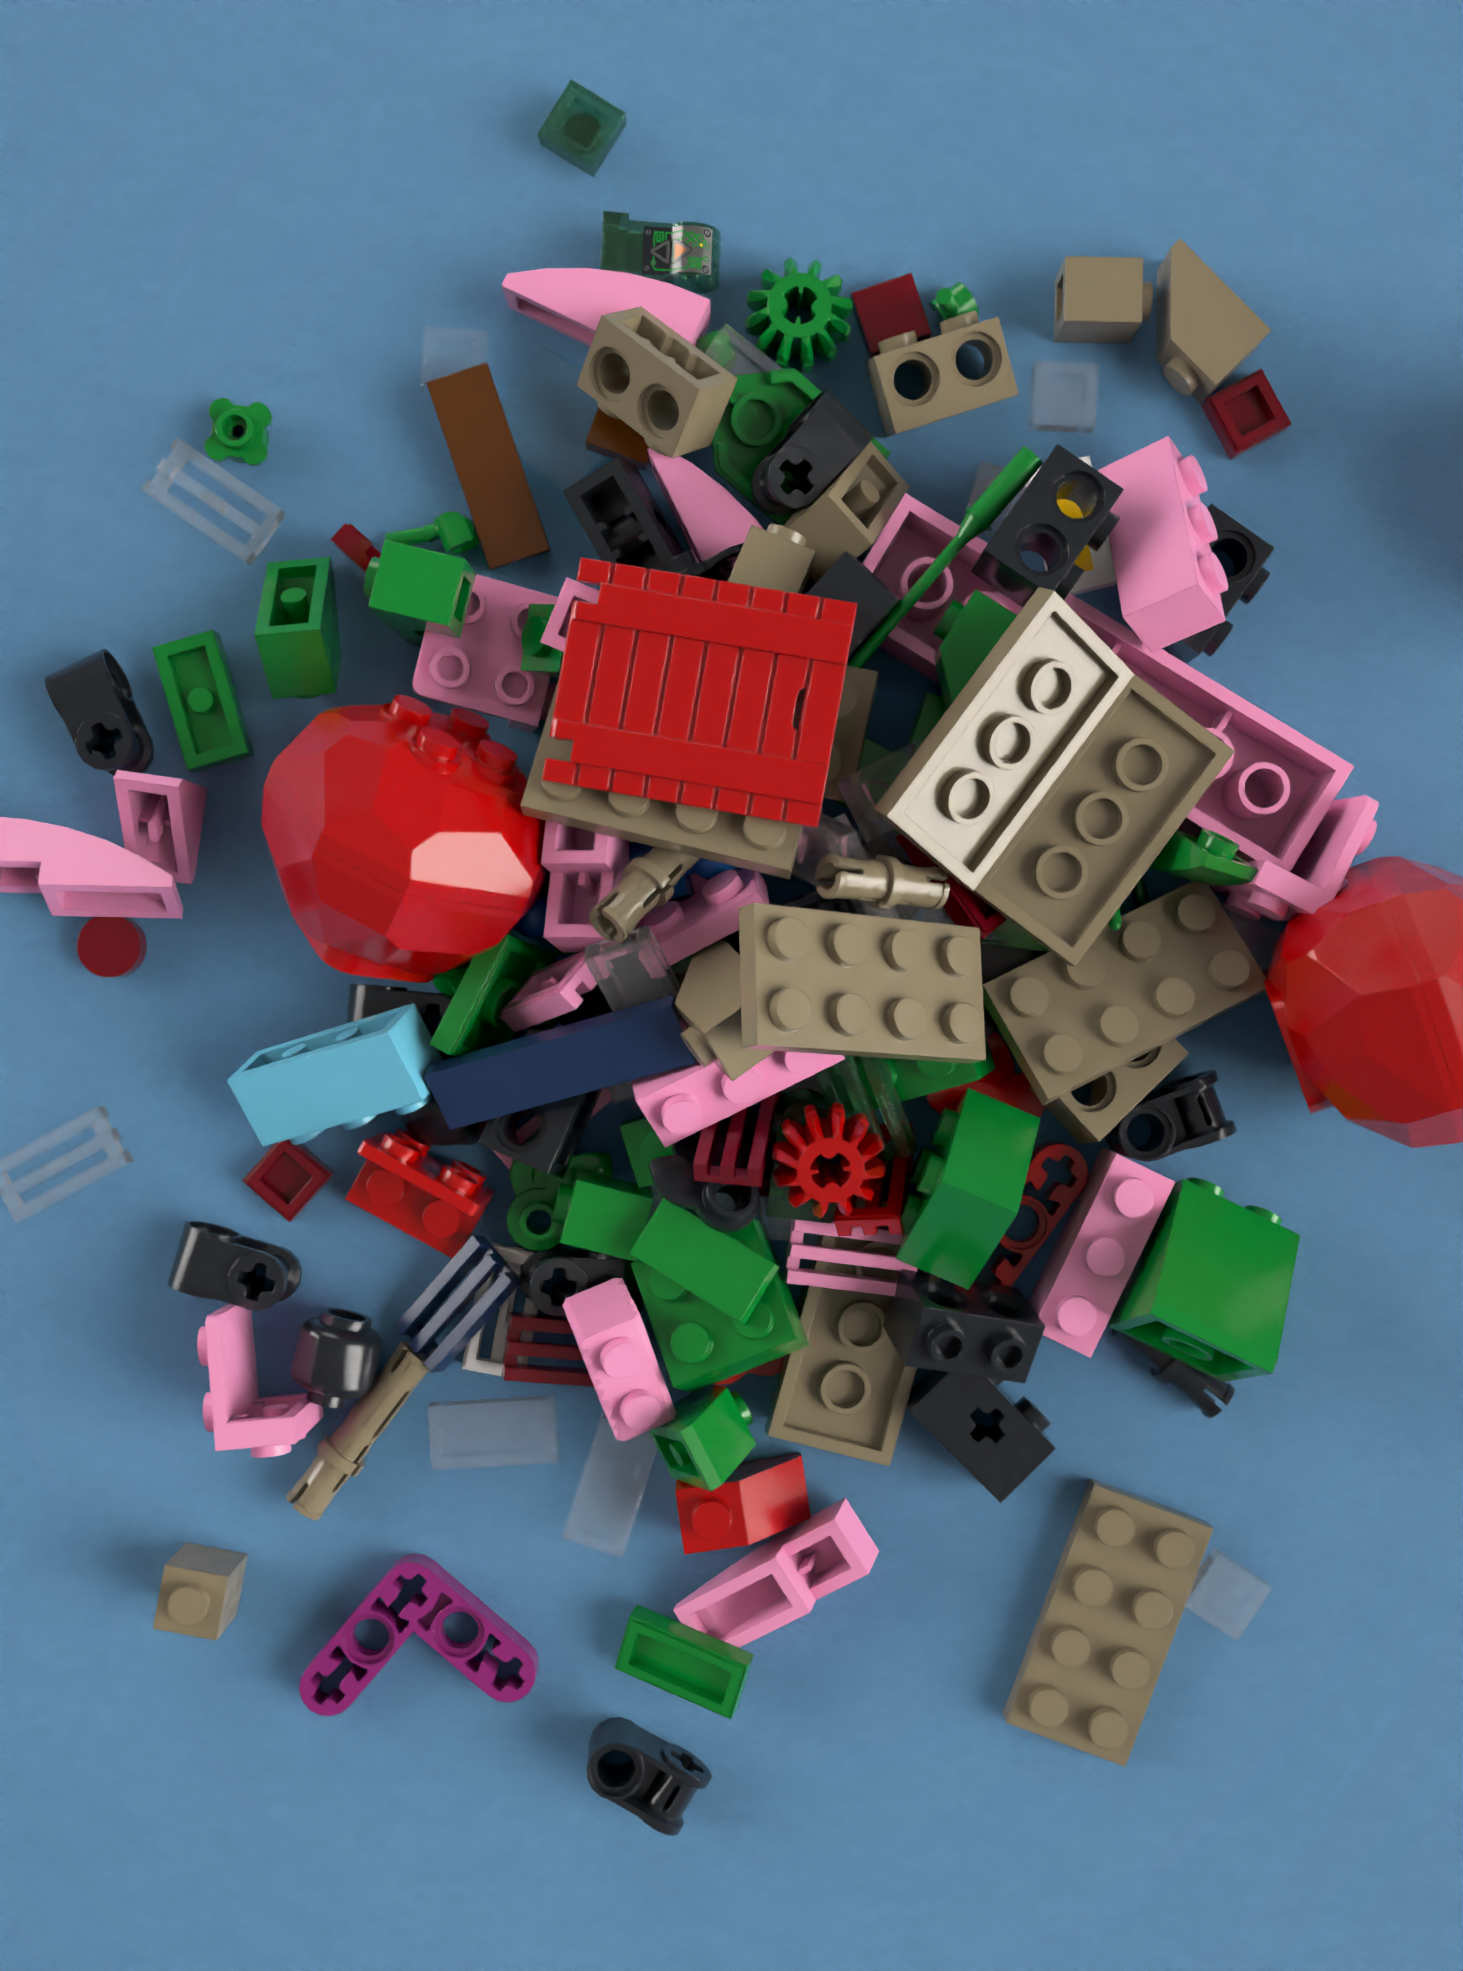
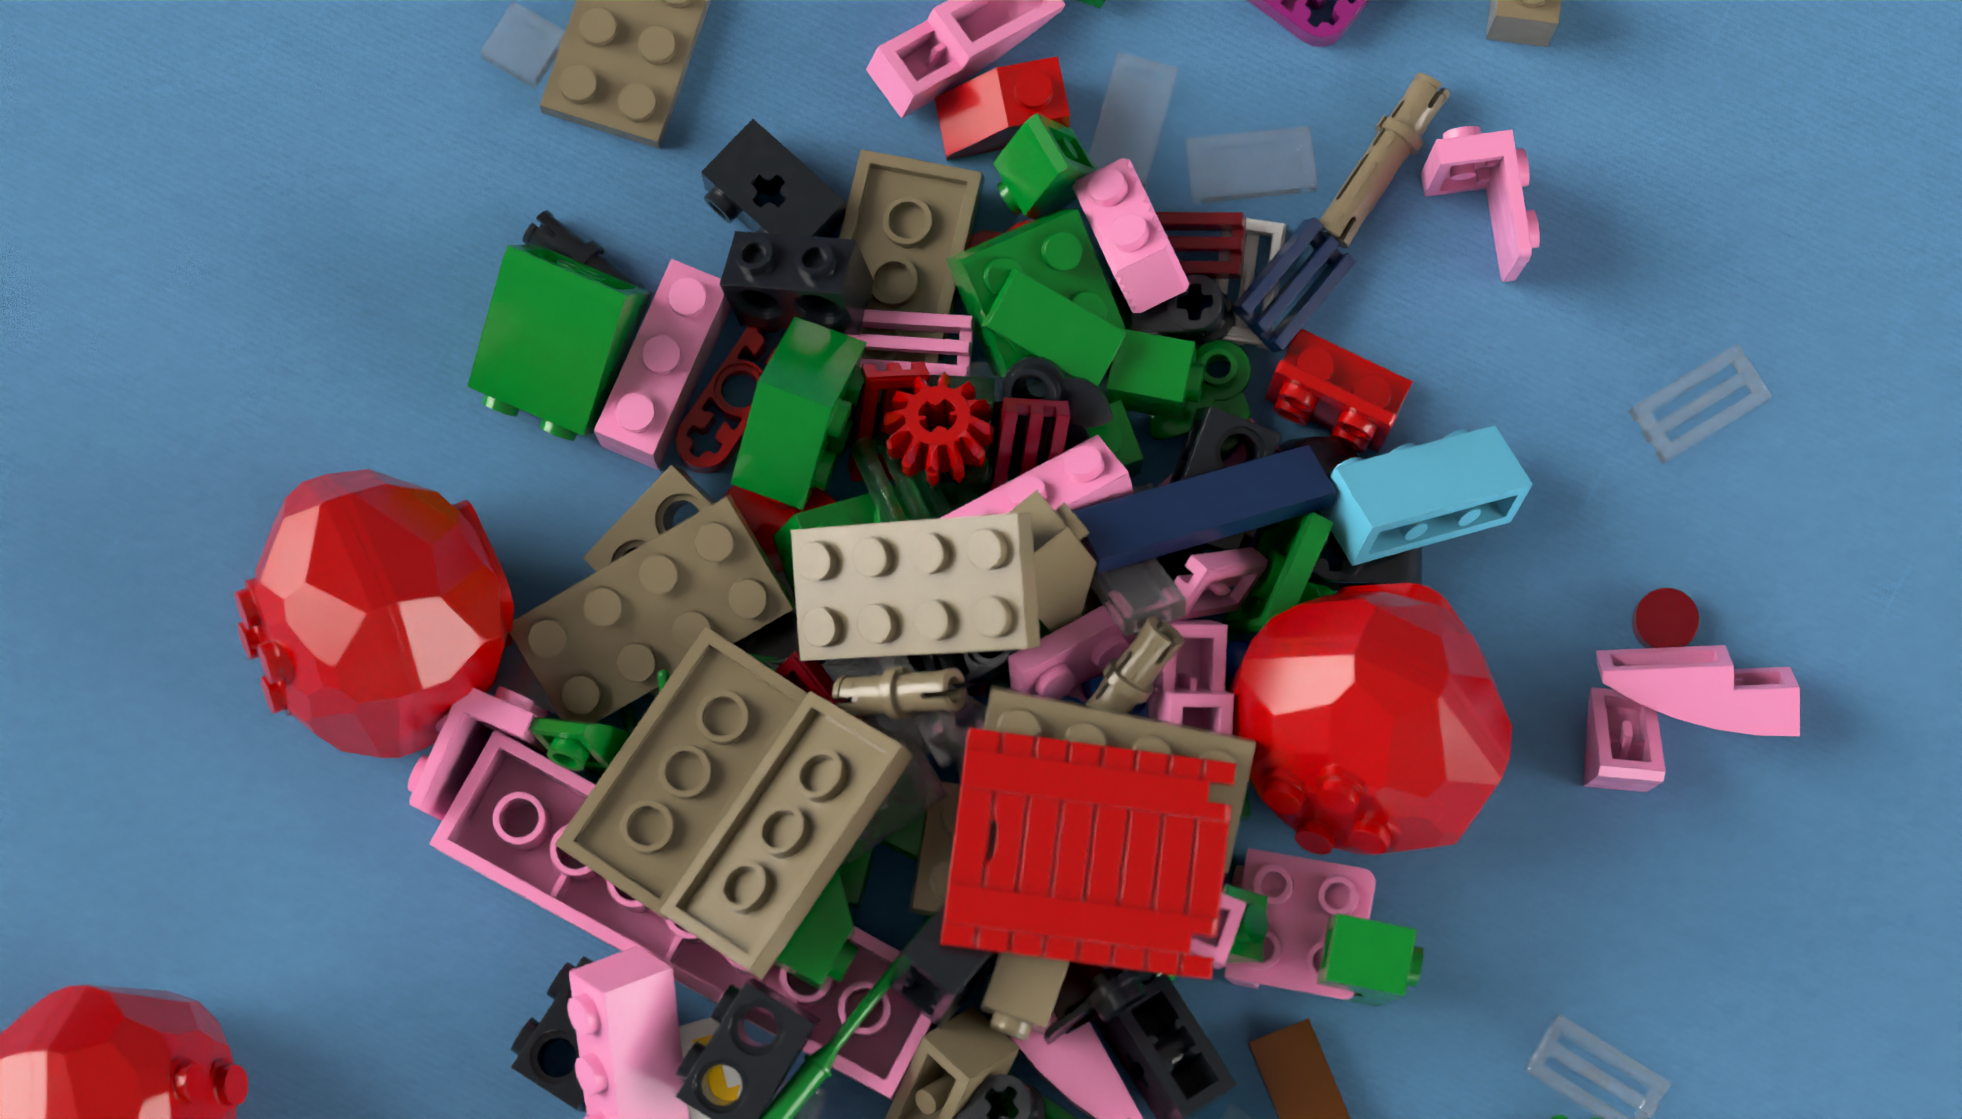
camera: 175 degrees right, 10 degrees down
(97, 707) = (1695, 856): black piece -> none
(203, 701) = (1590, 868): green plate -> none
(223, 1267) = (1527, 309): black piece -> none
(288, 1178) = (1470, 399): dark red tile -> none
(299, 628) = (1497, 947): green slope -> none
(336, 1356) = (1409, 228): black head -> none
(355, 546) = (1433, 1022): dark red tile -> none
(450, 527) = (1347, 1055): green hand -> none
(1180, 1116) = (588, 497): black piece -> none

